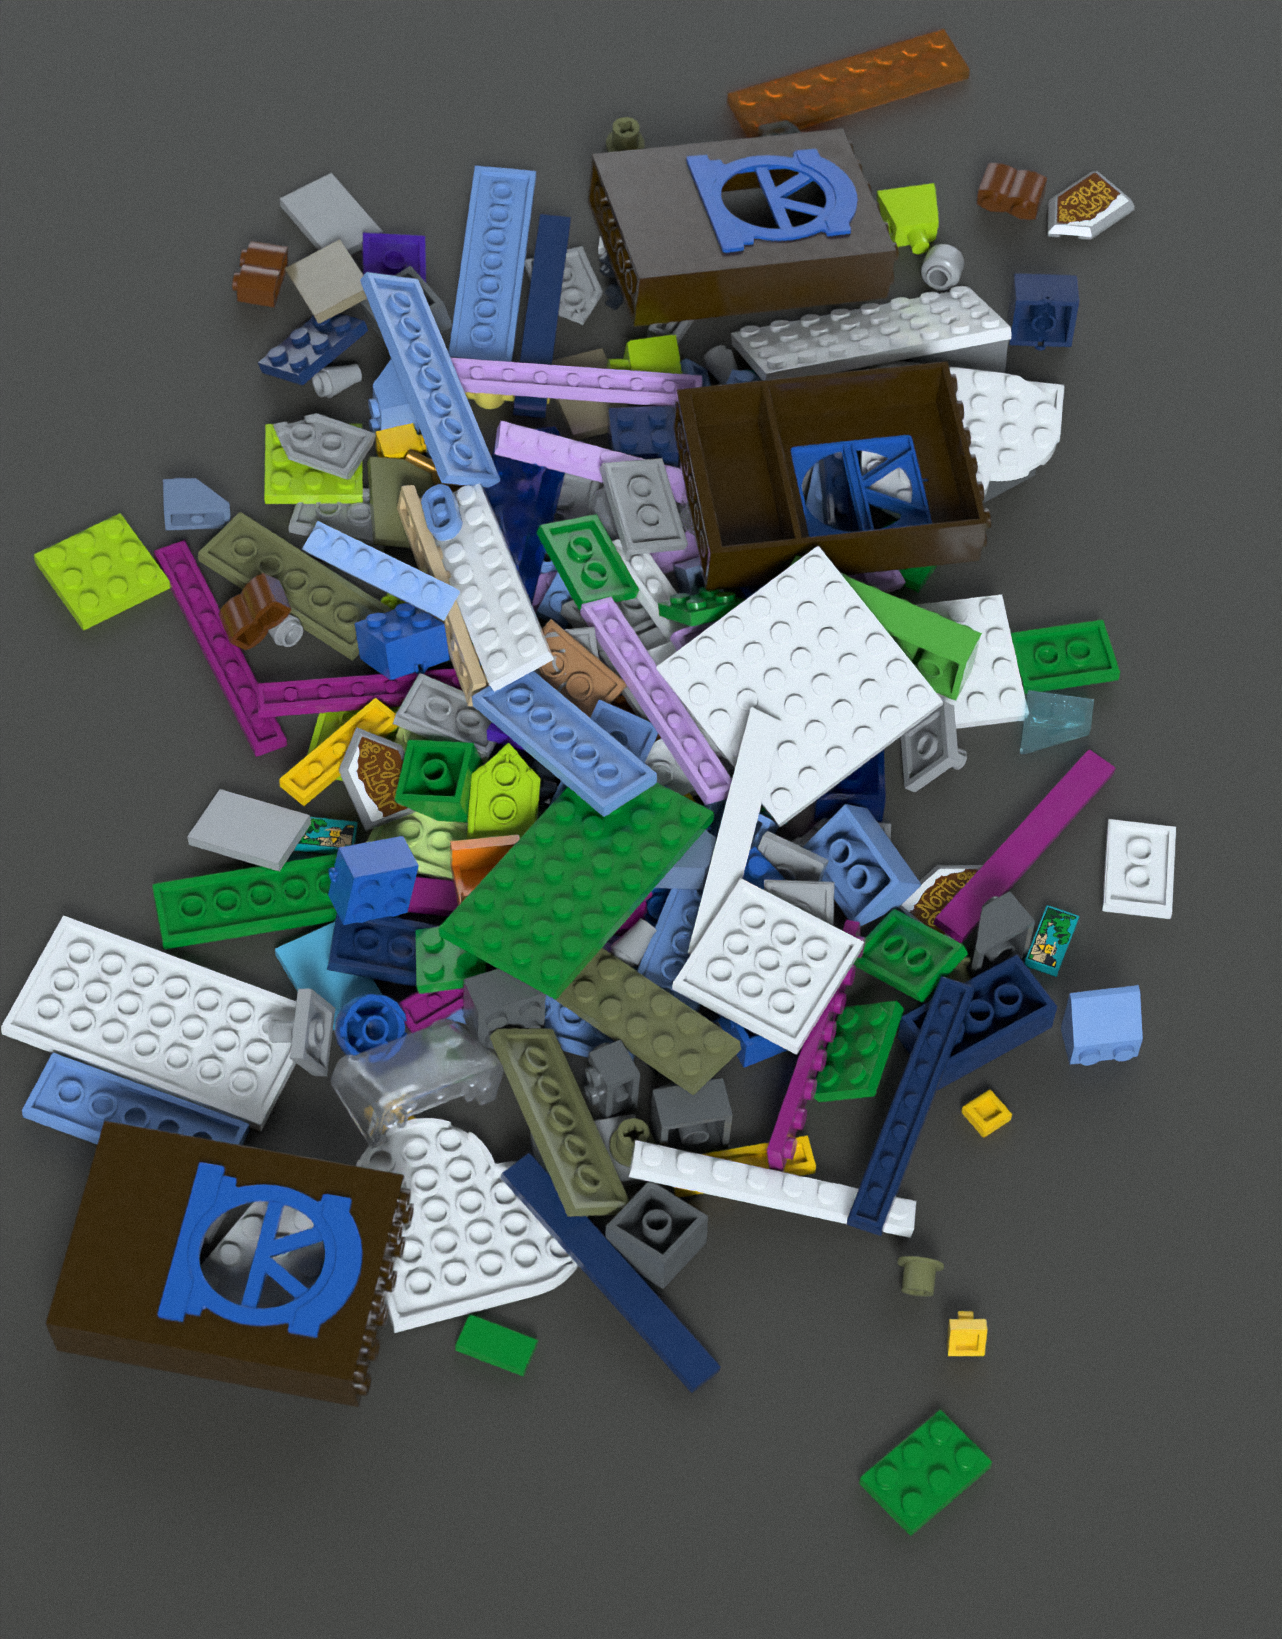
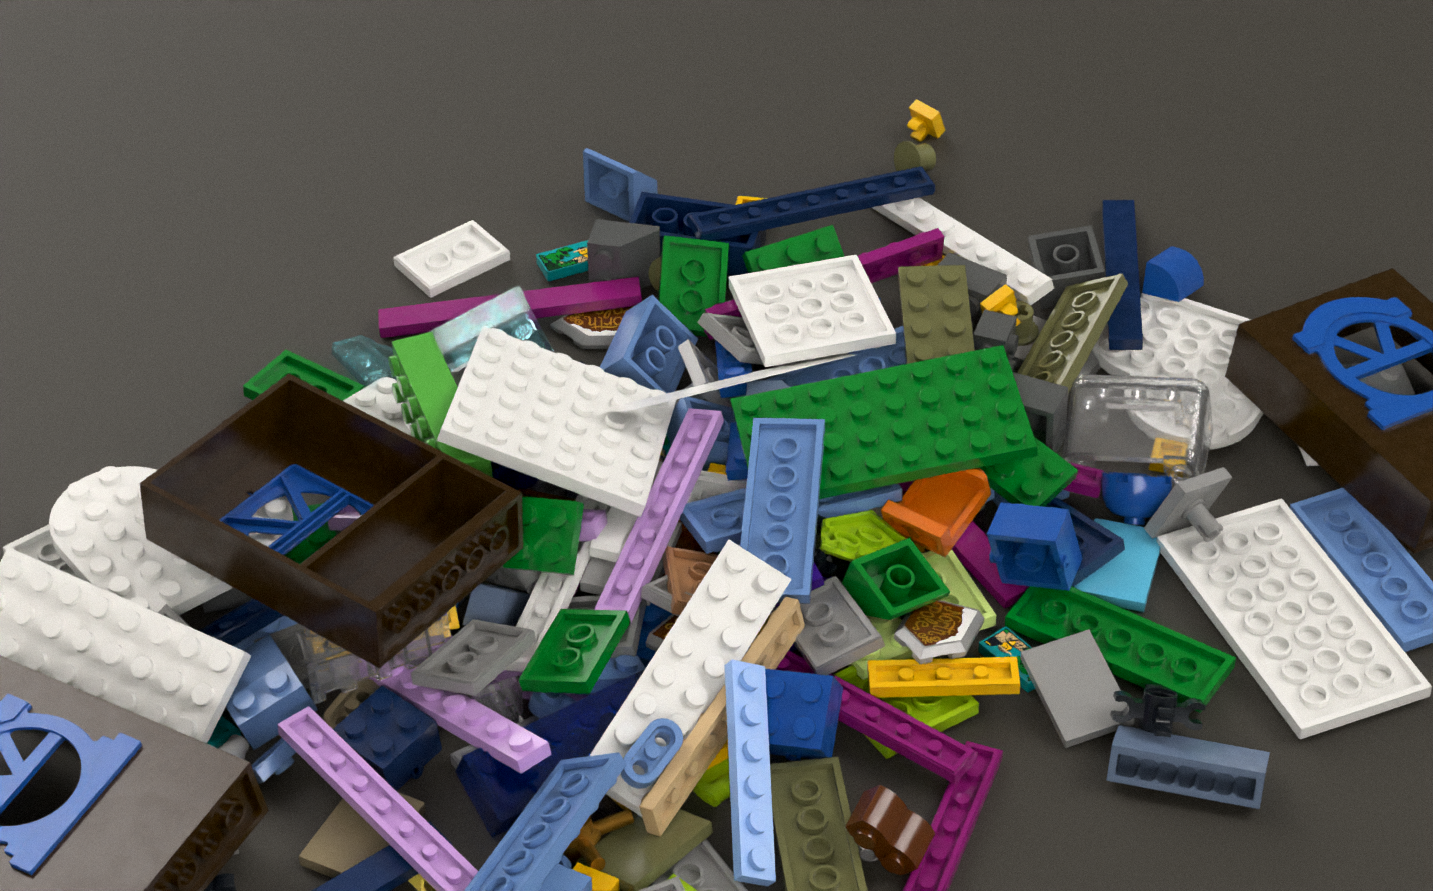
camera: 130 degrees left, 15 degrees down
(116, 828) = (1188, 766): none -> sand blue brick
(153, 821) = (1157, 710): none -> black pin
(496, 1345) = (1238, 296): green tile -> none
(562, 1300) = (1172, 275): none -> blue brick
(633, 1100) = (1002, 302): none -> yellow tile
(650, 355) = (294, 799): lime torso -> none
(925, 1472) = (1033, 94): green plate -> none
(993, 801) = (505, 312): none -> clear light blue wedge

